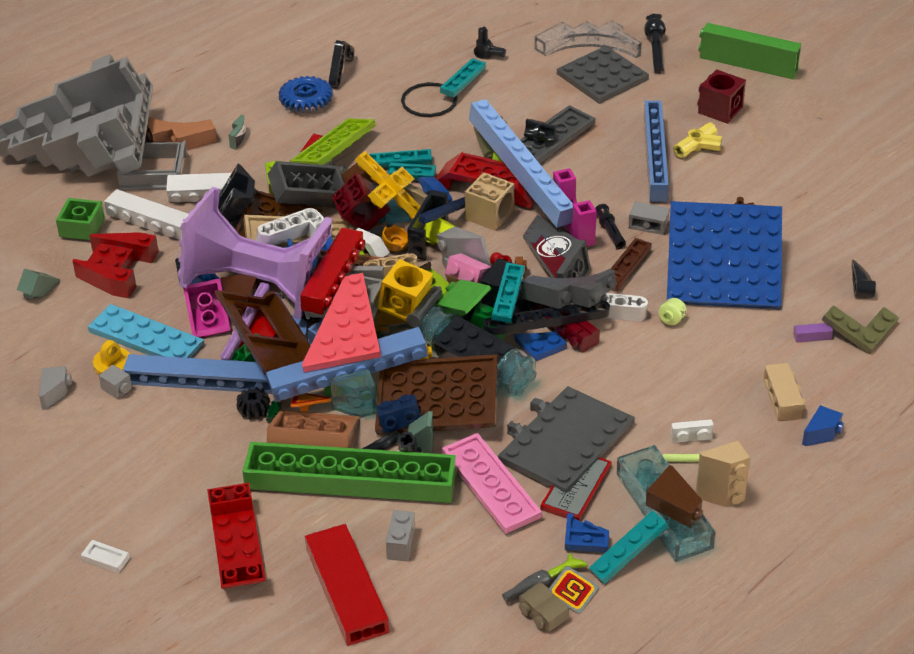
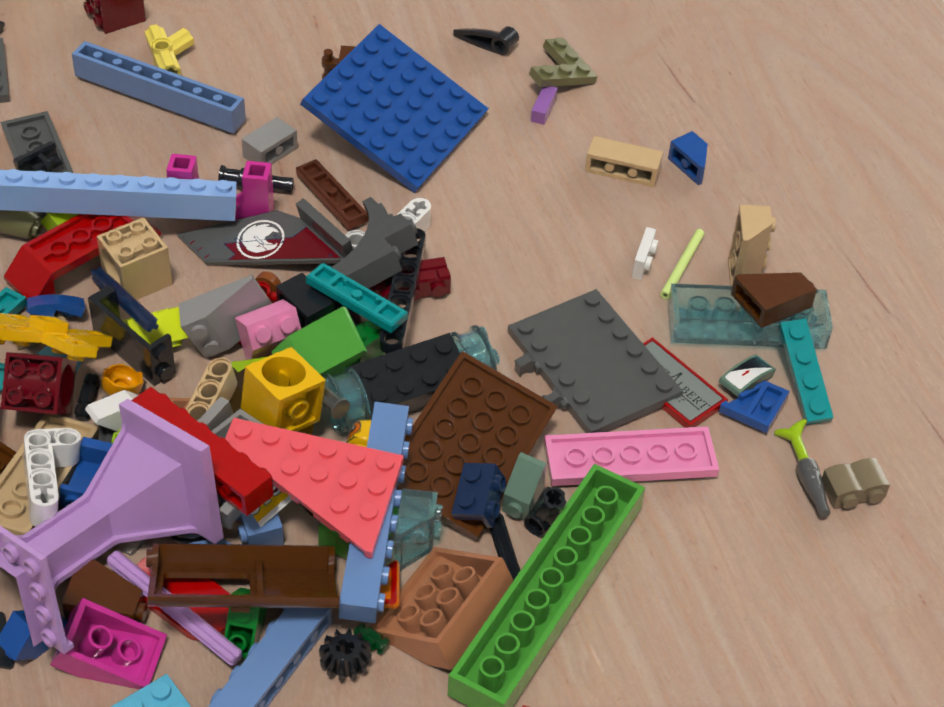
camera: 70 degrees left, 5 degrees up
(347, 584) = (737, 663): red brick -> none
(400, 535) = (683, 575): light grey brick -> none
(540, 344) = (422, 322): blue wing -> none
(573, 589) = (831, 447): sticker -> none
(611, 520) = (747, 374): none -> slope
(672, 311) = (444, 189): yellowish green head -> none

